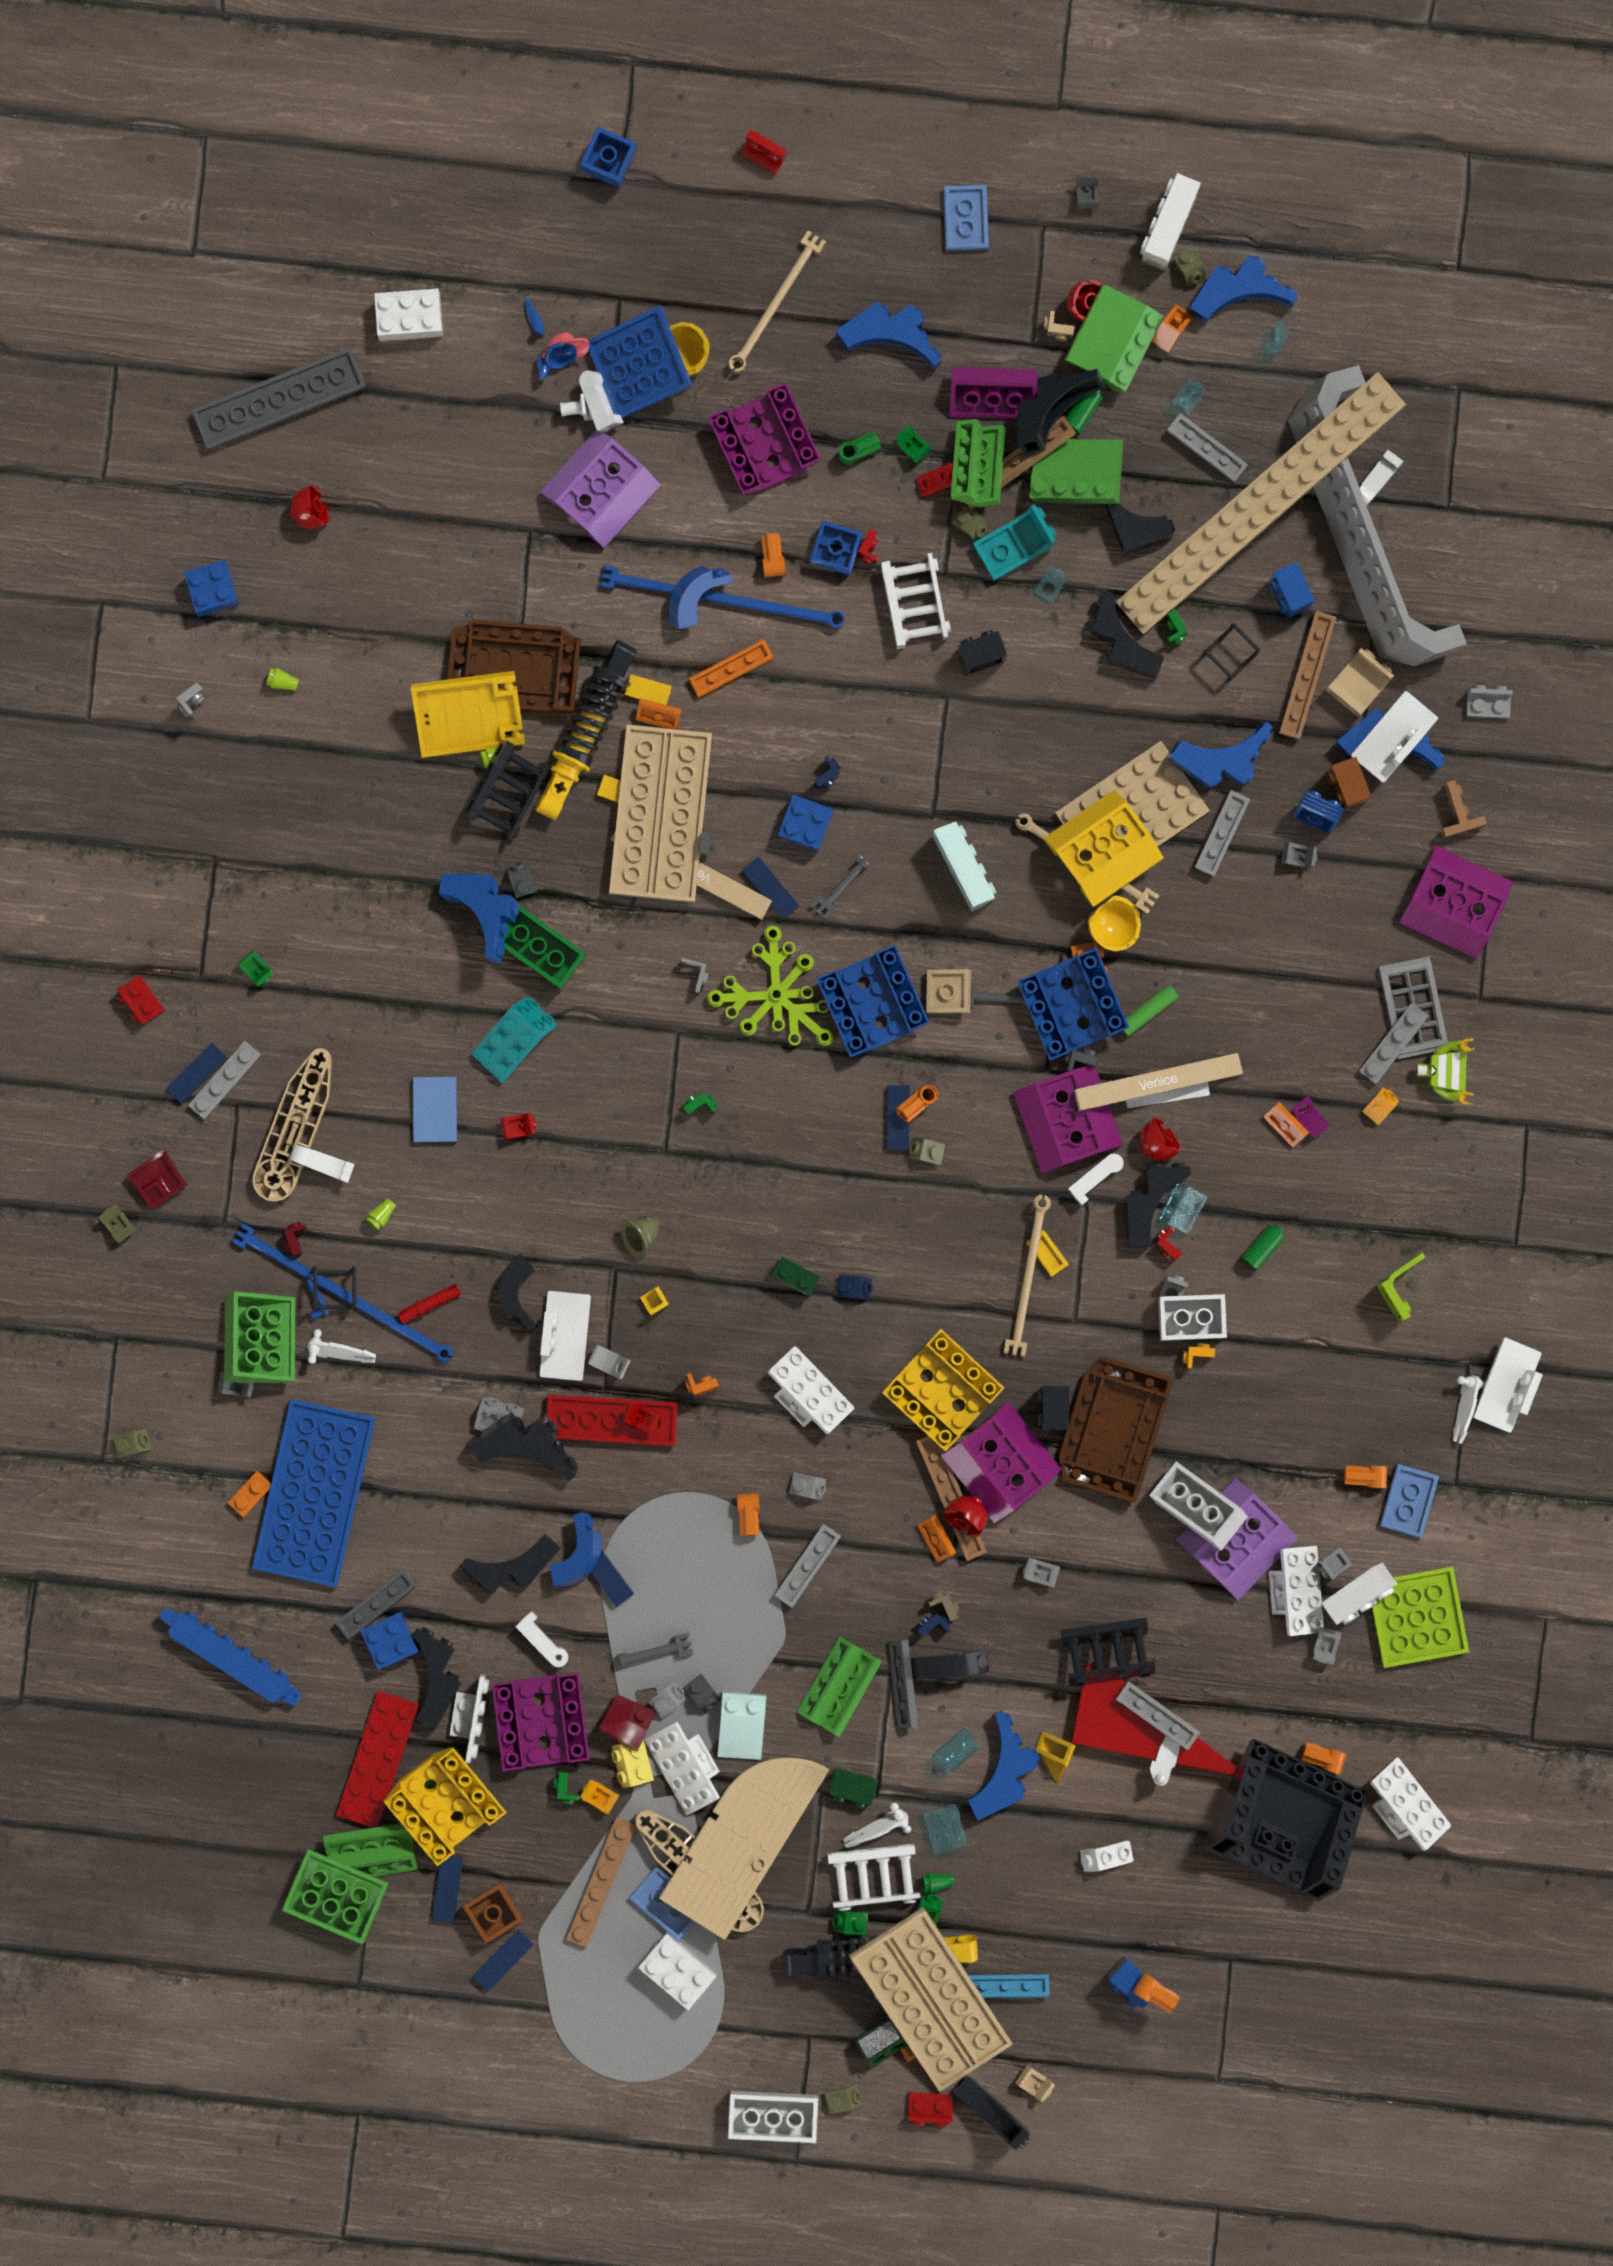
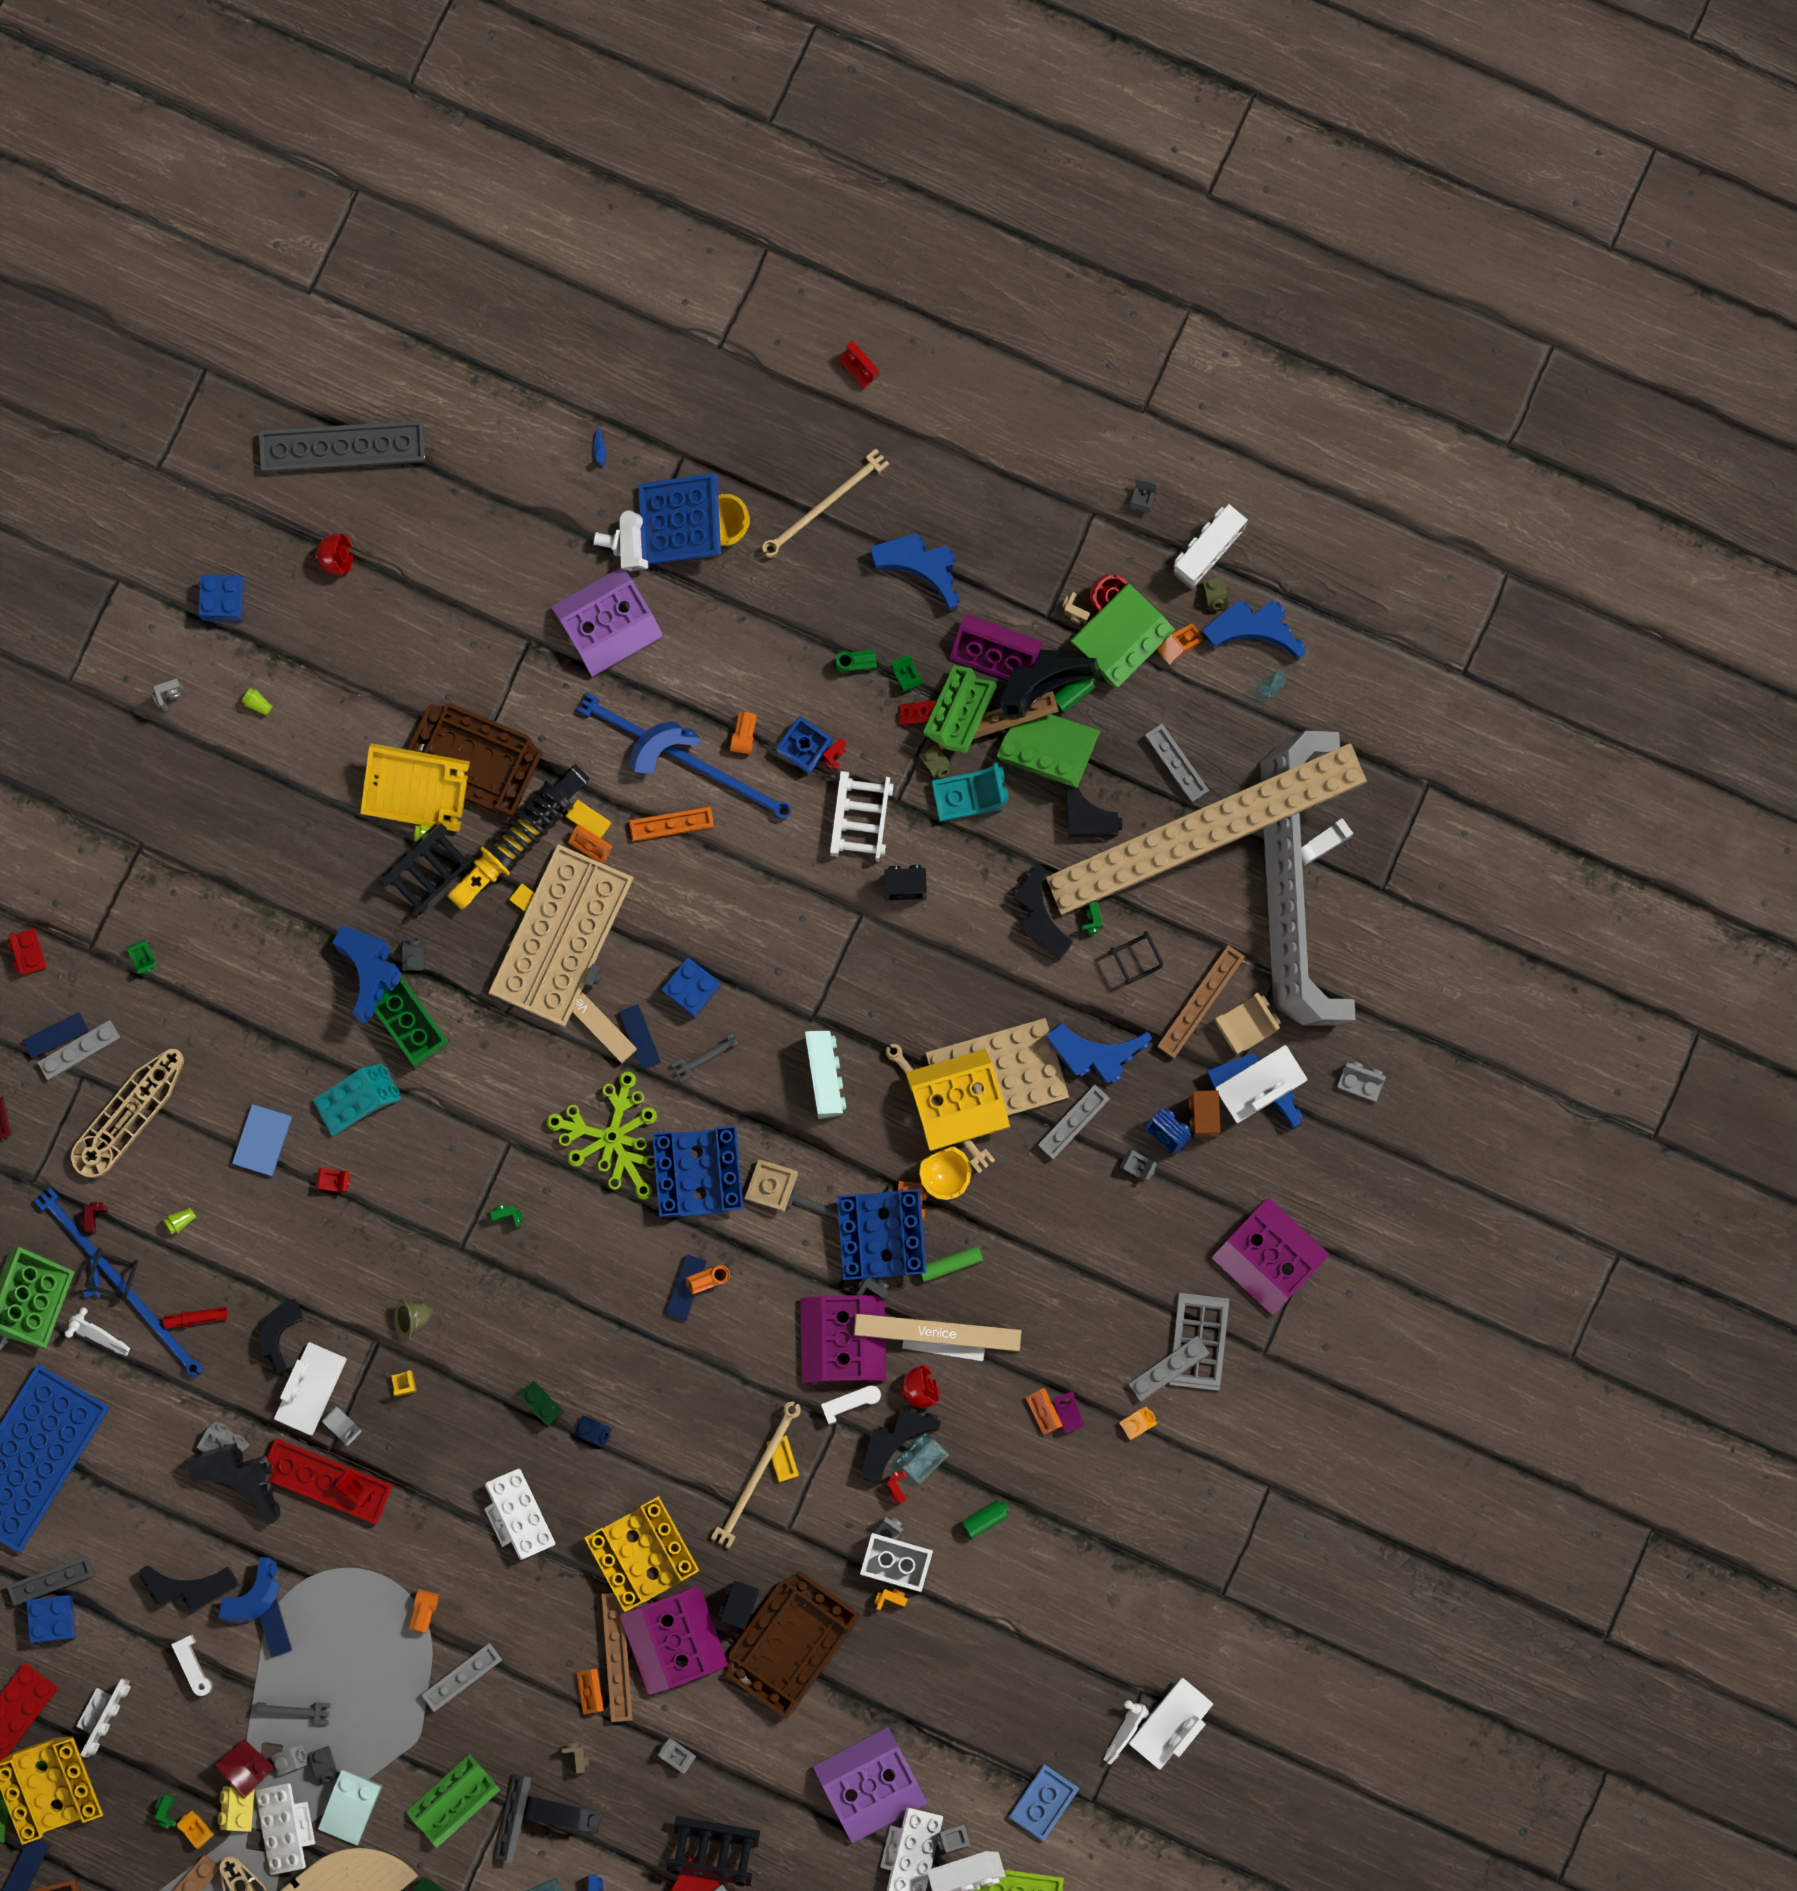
camera: 20 degrees right, 5 degrees down
(322, 1163) = (141, 1155): white leg -> none
(408, 314) = (485, 408): white brick -> none
(441, 1685) = (84, 1676): black arch -> none
(523, 1722) = (148, 1737): magenta slope -> none
(559, 352) = (611, 486): blue hair -> none
(608, 157) = (715, 324): blue brick -> none
(703, 977) = (549, 1098): light grey bracket -> none
(705, 1385) = (422, 1477): orange bracket -> none
(780, 435) = (787, 626): magenta slope -> none
(808, 1486) = (487, 1603): light grey bracket -> none
(827, 779) = (725, 953): dark blue bracket -> none
(926, 1150) = (702, 1326): olive bracket -> none
(928, 1624) = (555, 1769): dark blue bracket -> none
(966, 217) = (1025, 483): medium blue tile -> none
(967, 1514) = (624, 1677): red cylinder -> none
(1055, 577) = (996, 835): clear light blue bracket -> none
(1188, 396) = (1175, 711): clear light blue bracket -> none
(1198, 1506) = (842, 1741): white brick -> none
(1291, 590) = (1211, 918): blue brick -> none
(1370, 1476) = (1014, 1767): orange piece -> none
(1398, 1307) = (1094, 1618): lime piece -> none
(1448, 1070) = (1211, 1410): lime torso -> none
(1459, 812) = (1301, 1175): medium nougat bracket -> none

